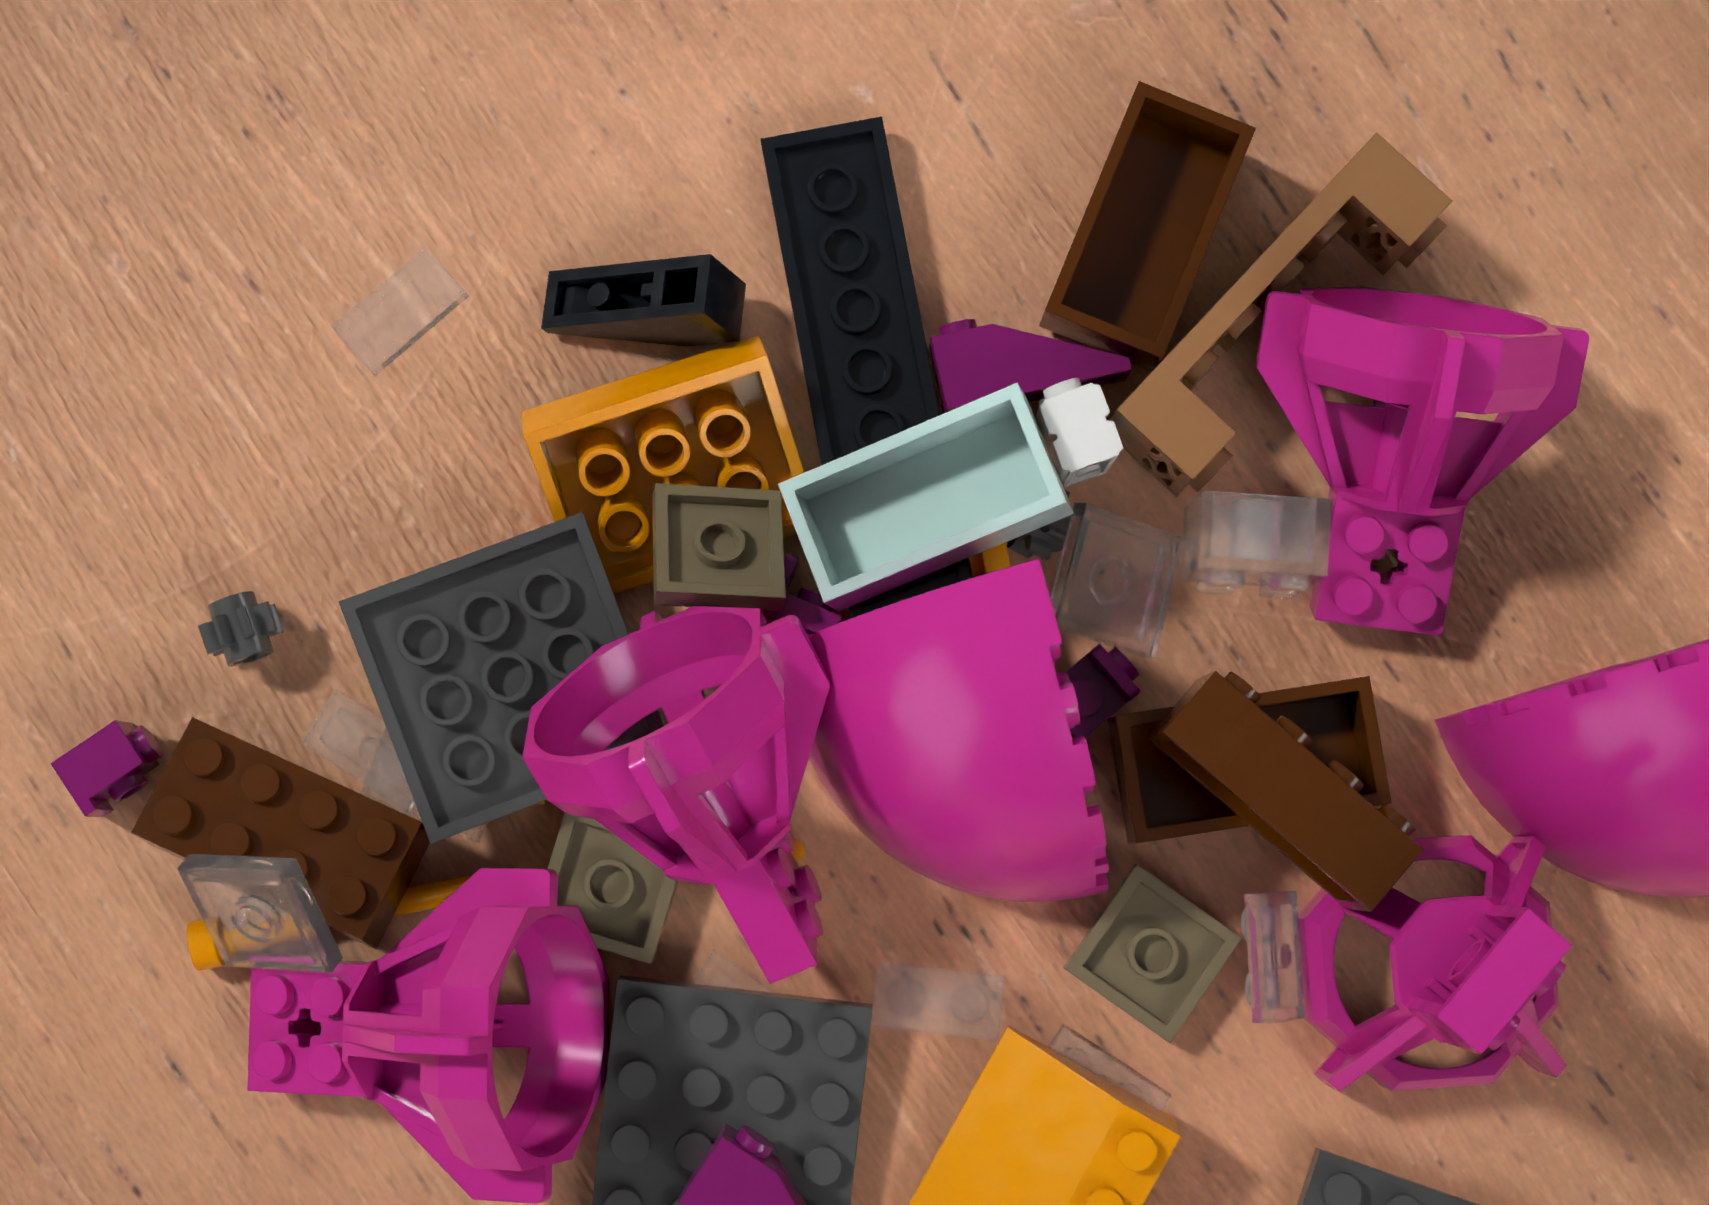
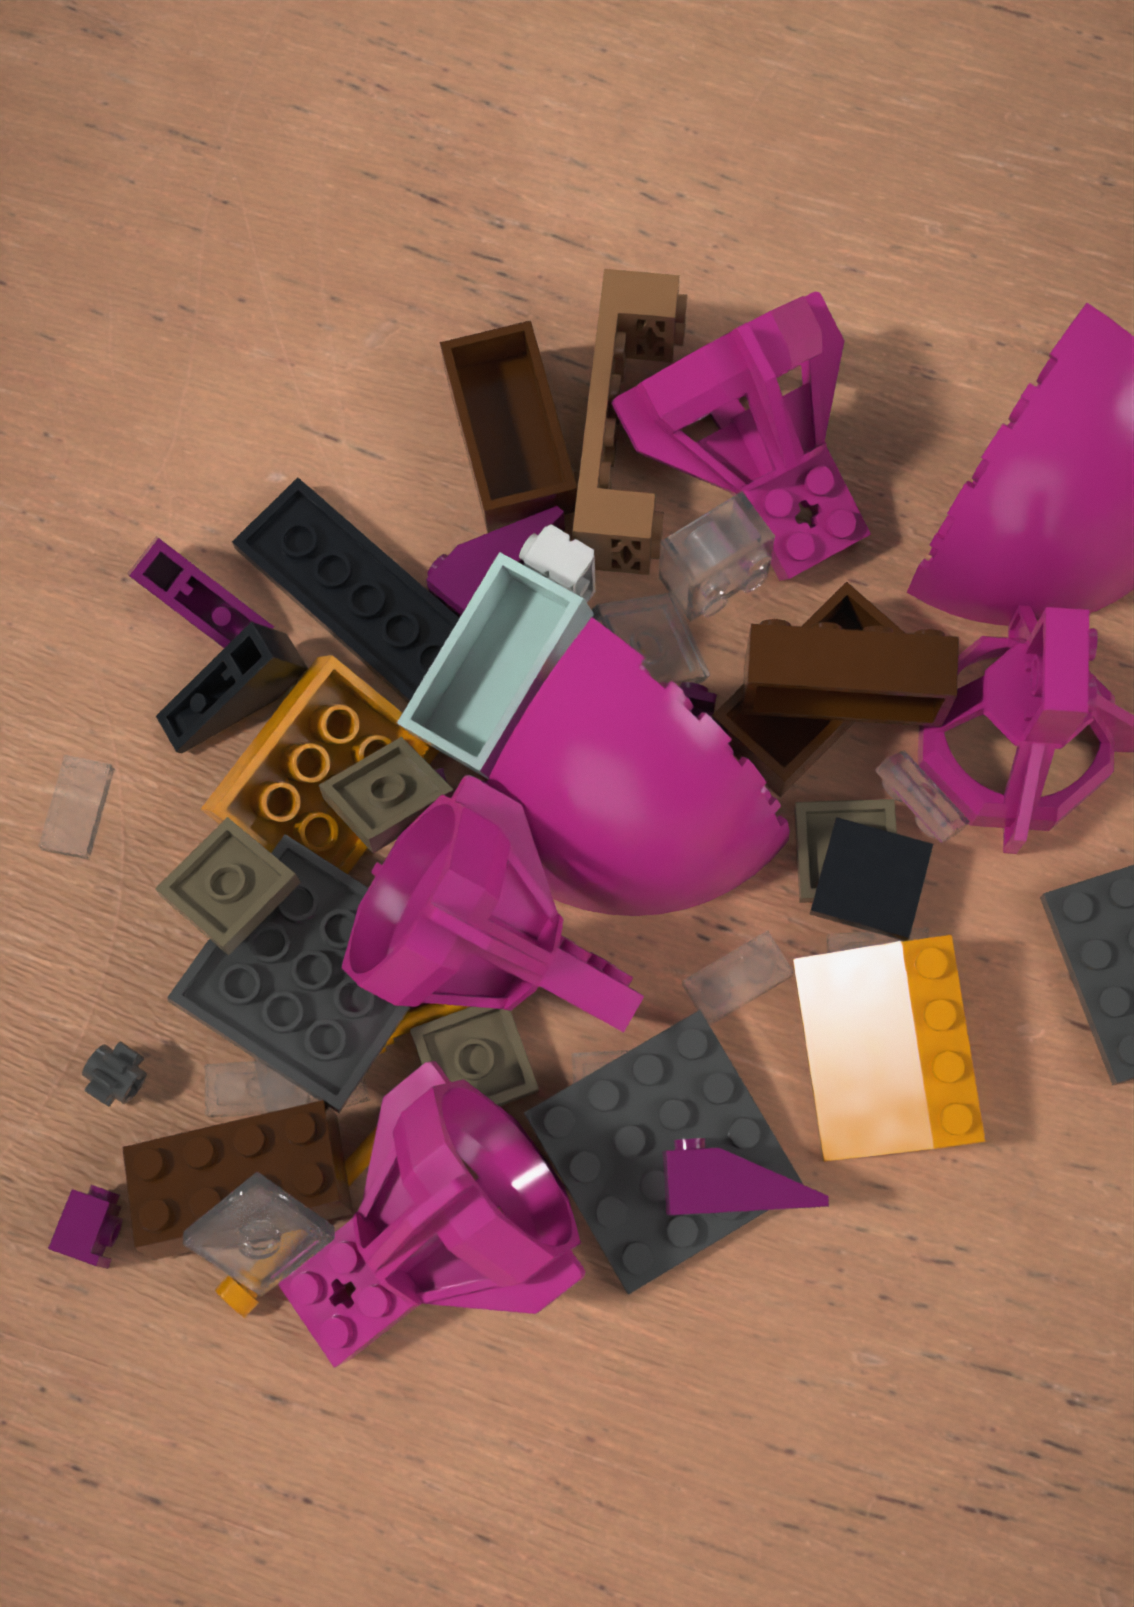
camera: 30 degrees left, 10 degrees down
(480, 530) = (228, 886): none -> dark tan plate
(679, 169) = (192, 593): none -> magenta slope
(1151, 1007) = (871, 879): none -> black tile

